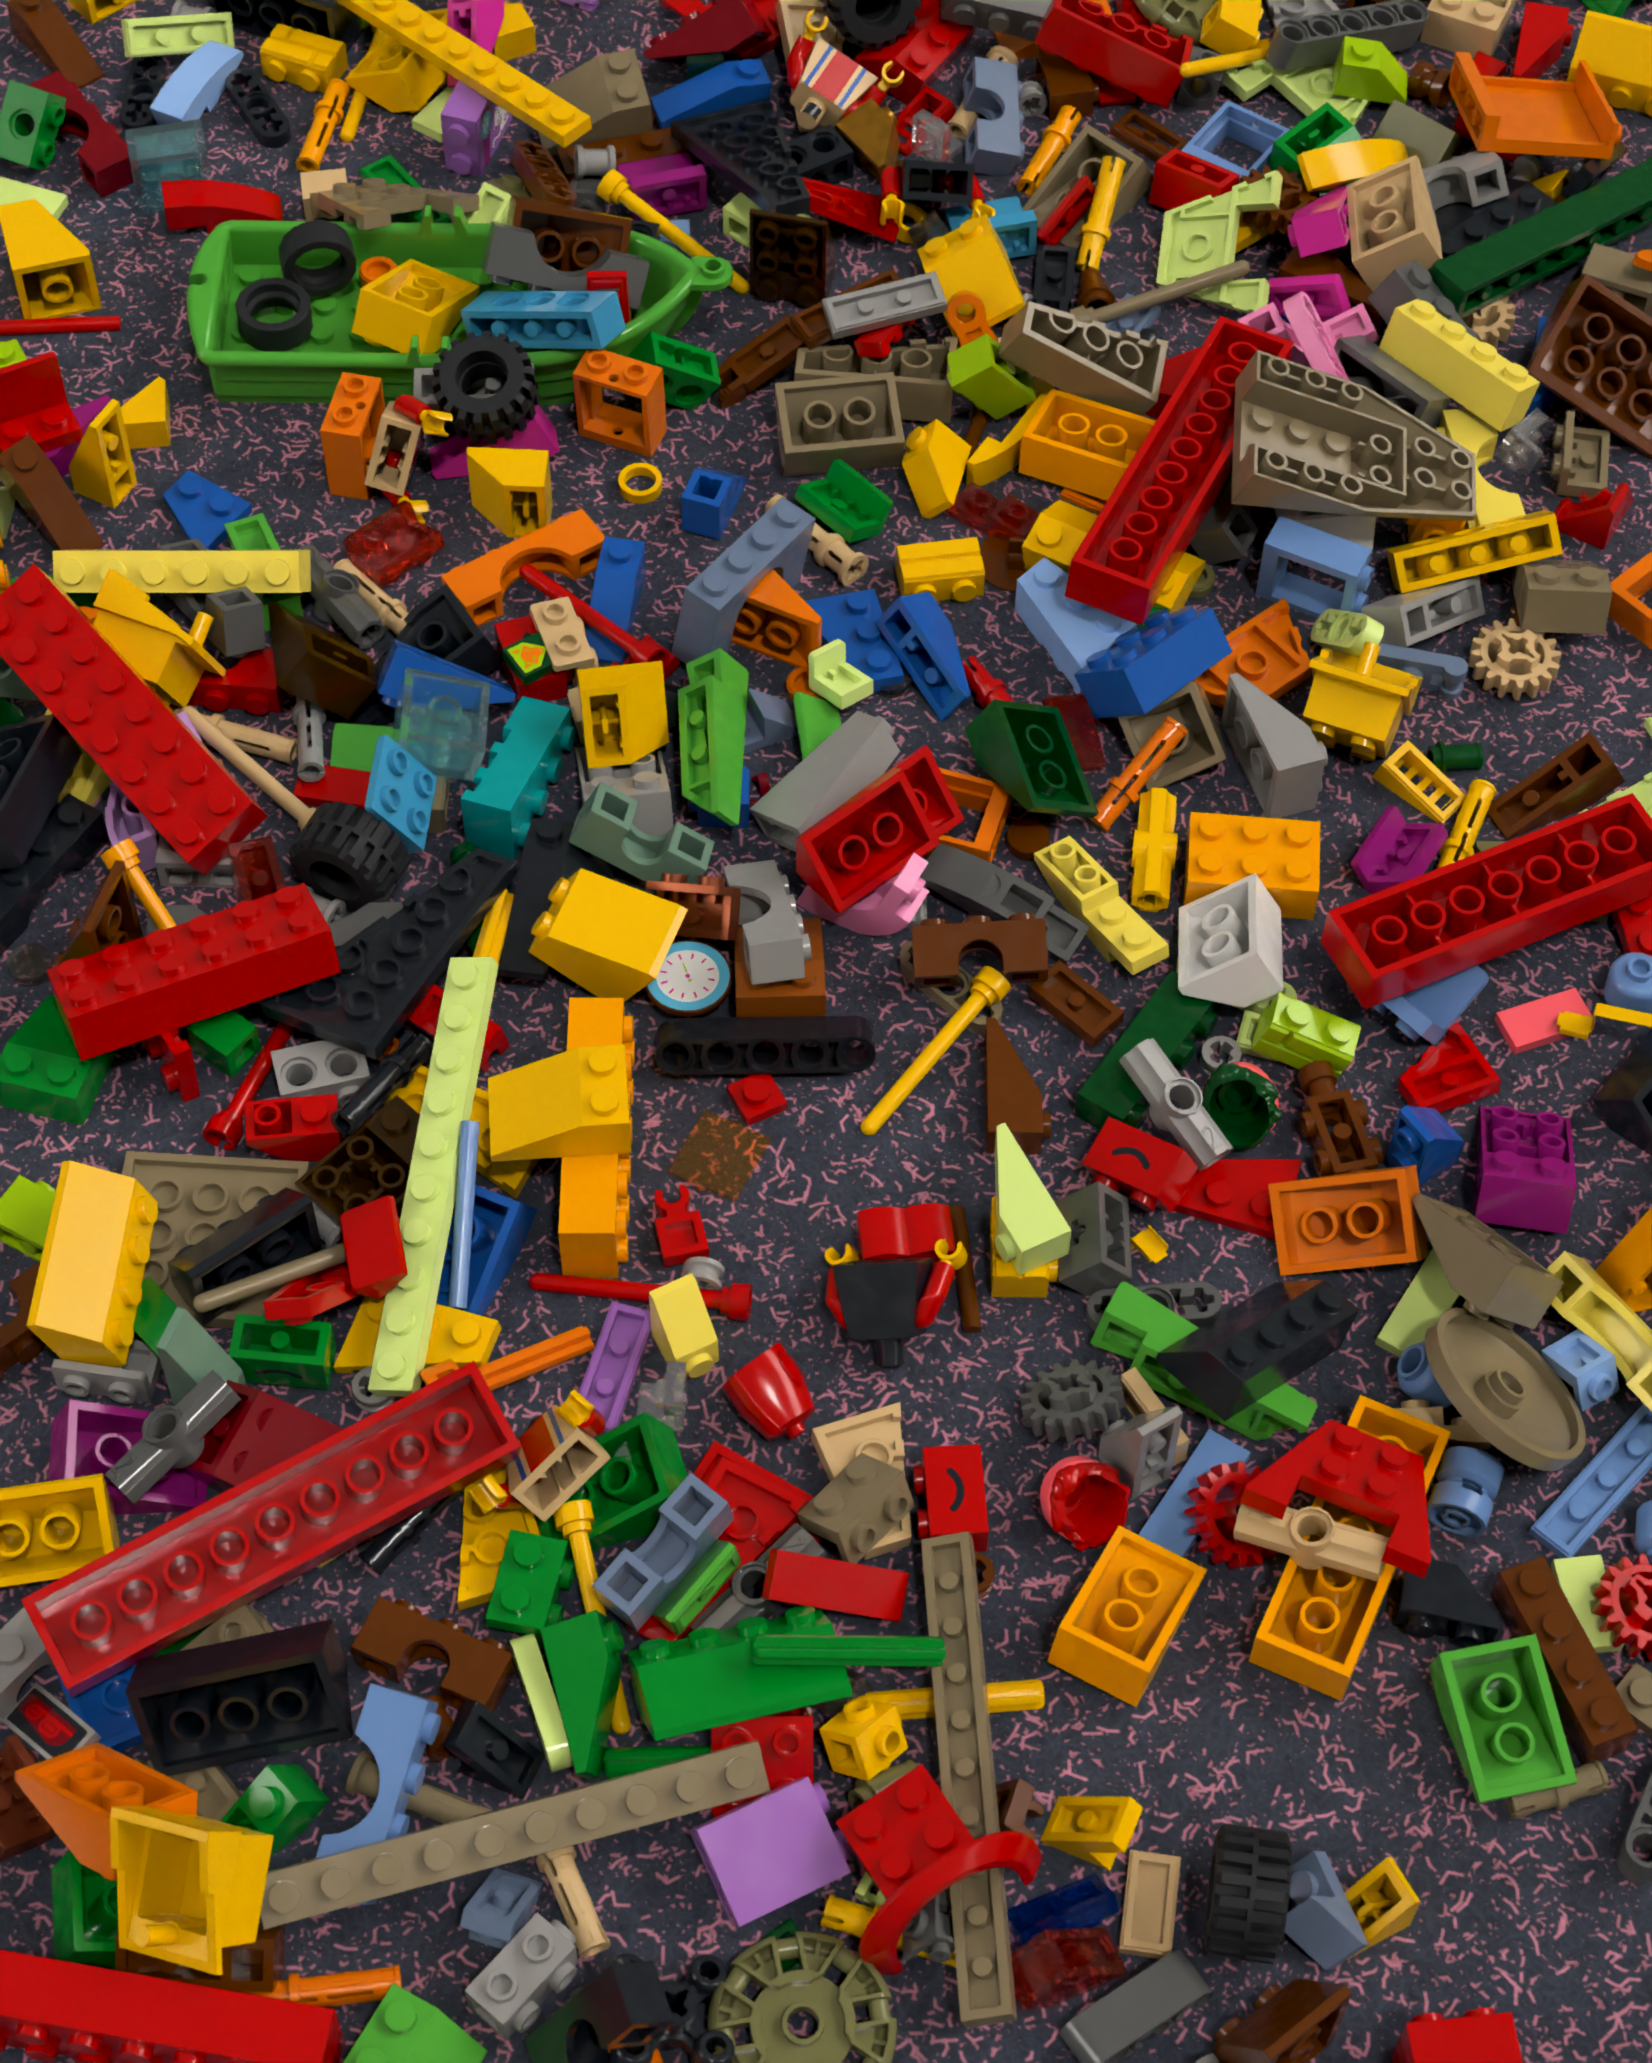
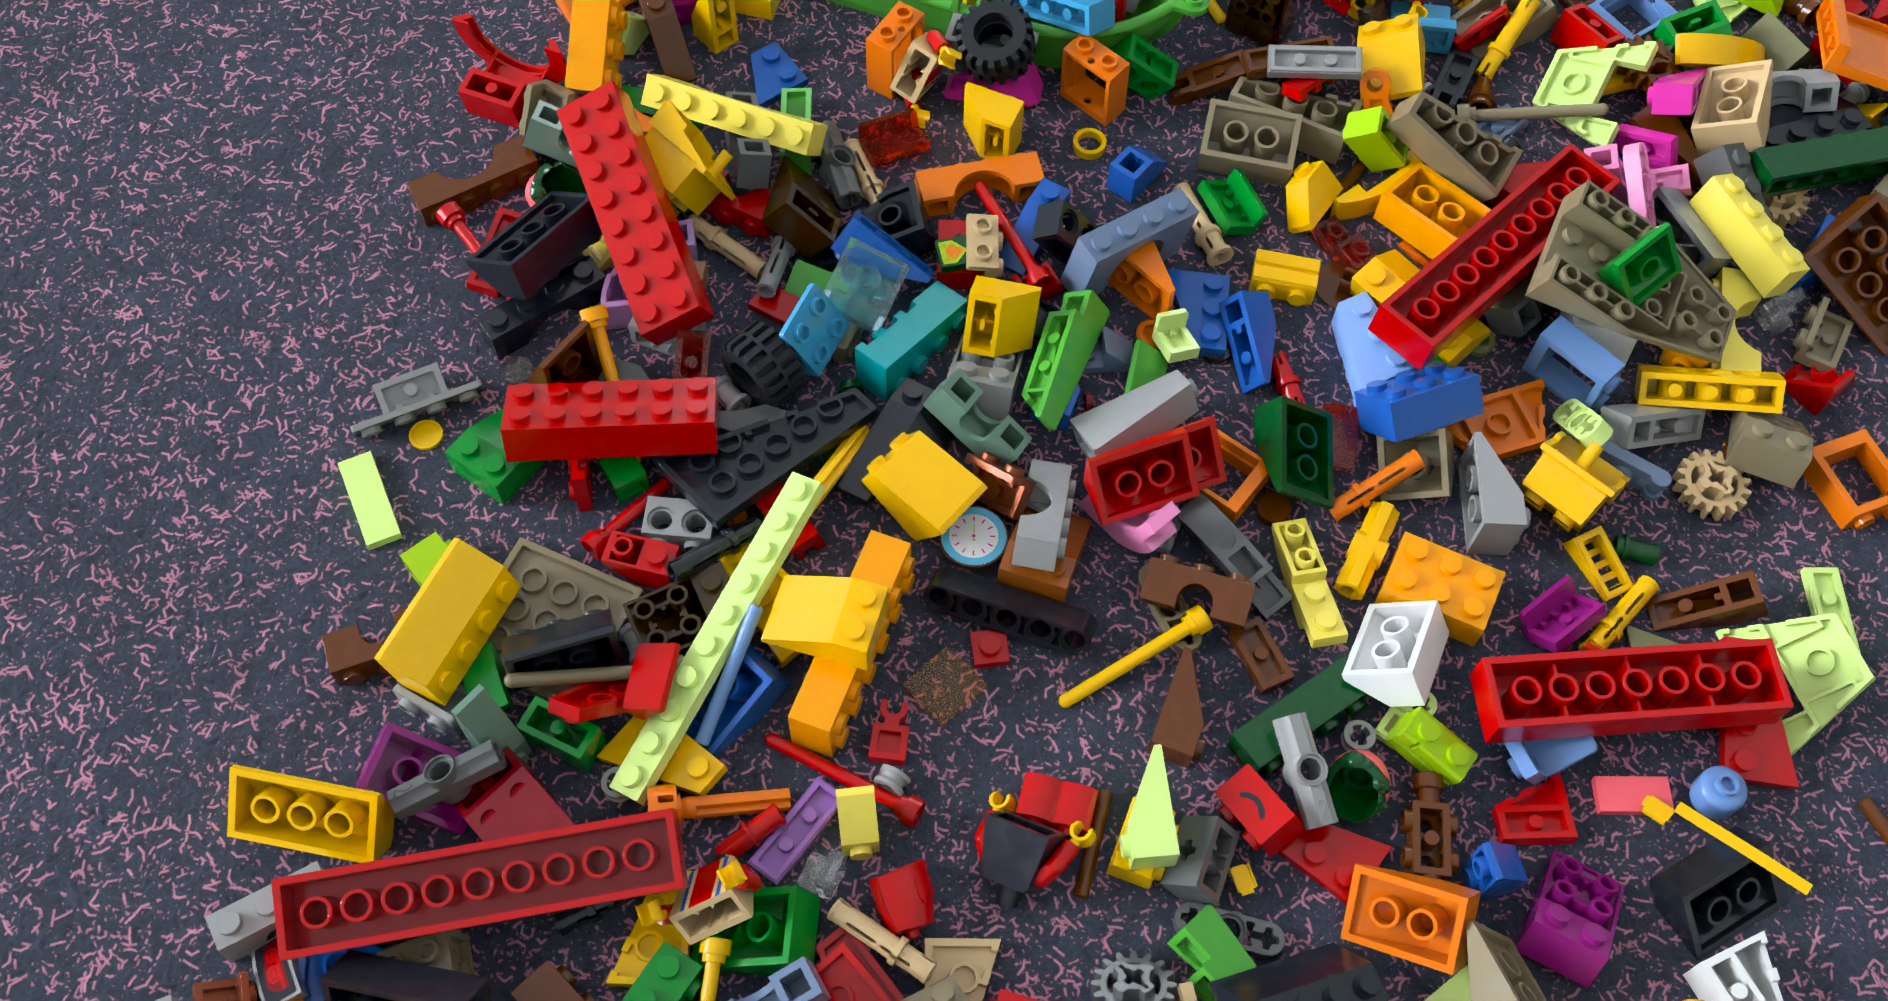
camera: 20 degrees right, 5 degrees up
(250, 767) = (723, 271): tan piece -> none
(562, 1381) = (751, 832): none -> red axle
(652, 591) = (1059, 227): none -> black brick
(765, 1443) = (895, 949): none -> tan pin
(1353, 429) = (1643, 265): none -> green slope

